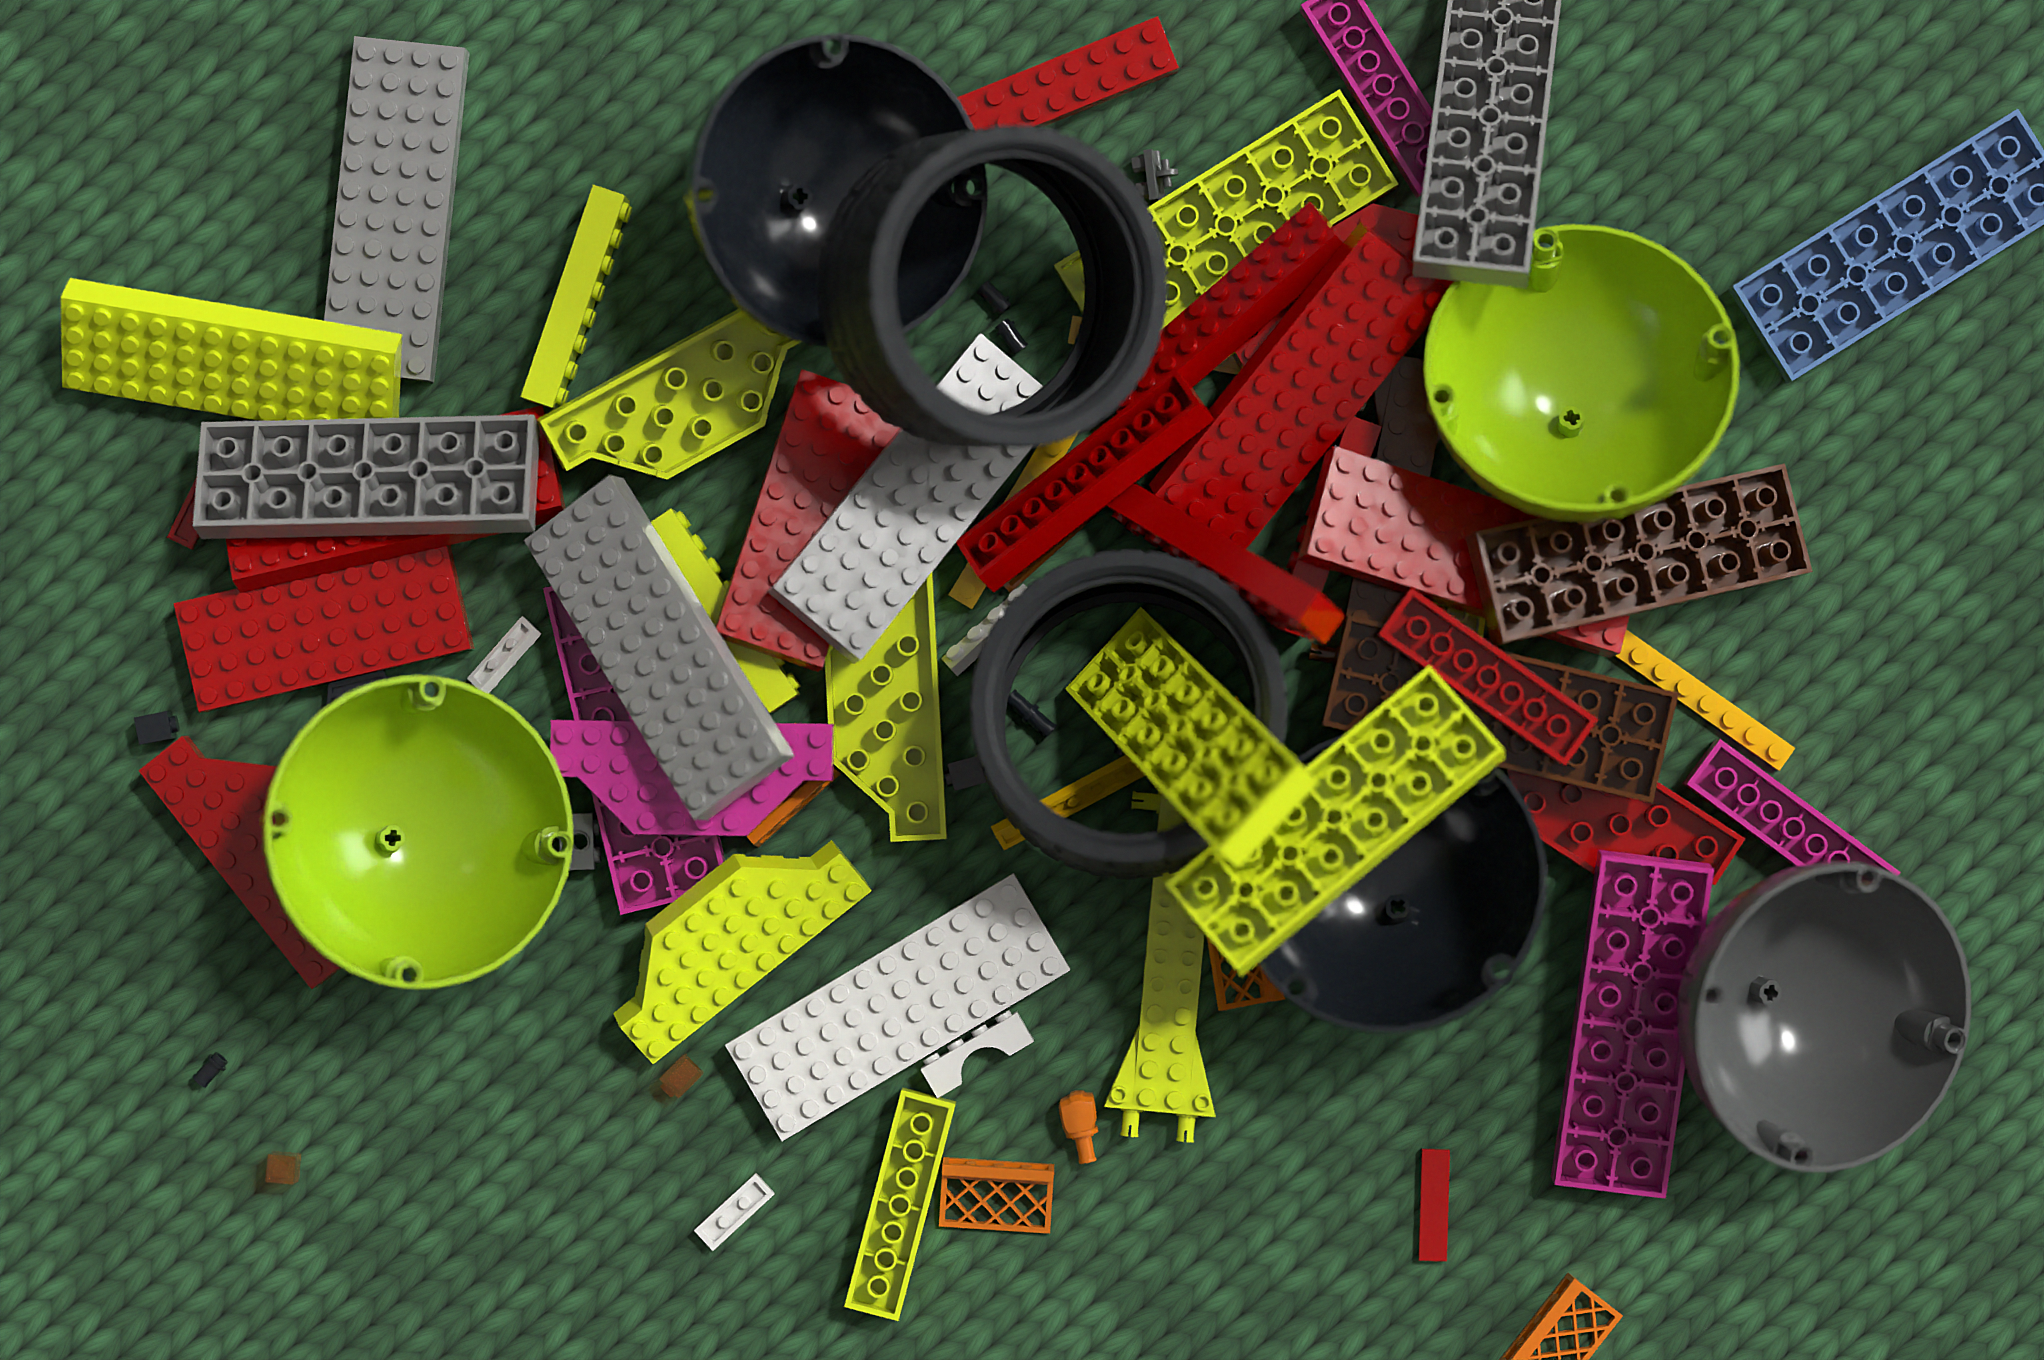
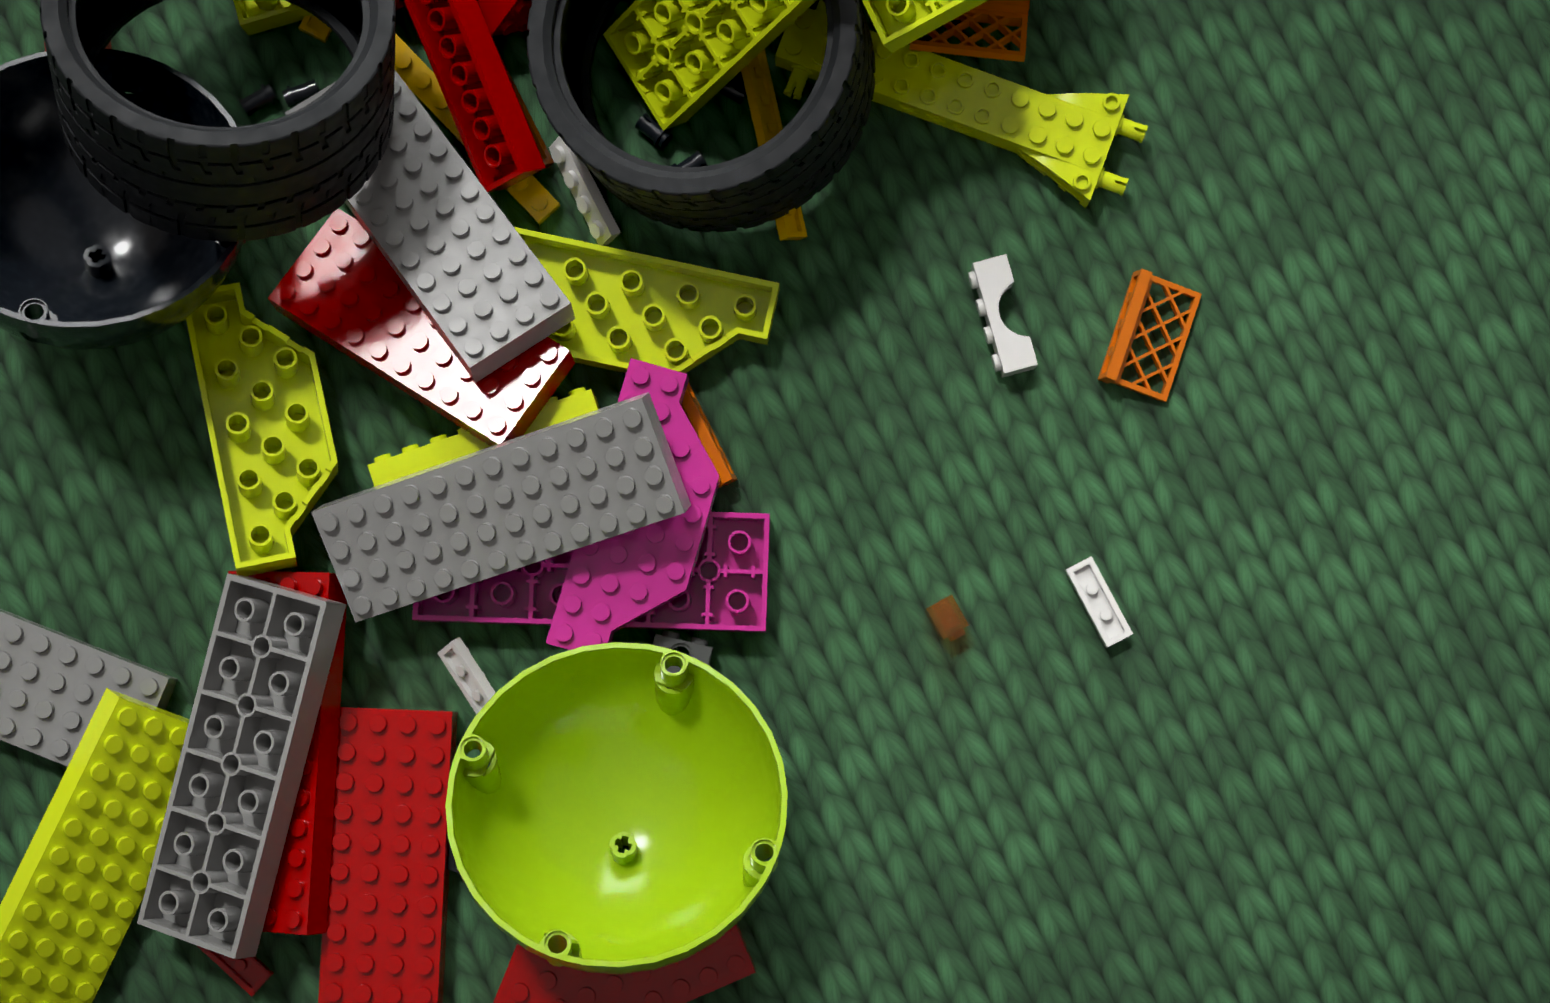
camera: 65 degrees left, 5 degrees down
(576, 297) = (129, 506): neon yellow brick -> none
(729, 937) = (819, 526): neon yellow brick -> none
(897, 1007) = (935, 381): white brick -> none
(900, 1204) = (1135, 431): neon yellow brick -> none
(964, 773) = (720, 250): black brick -> none
(1065, 677) = (653, 131): none -> black pin
(1078, 1122) = (1098, 232): orange piece -> none

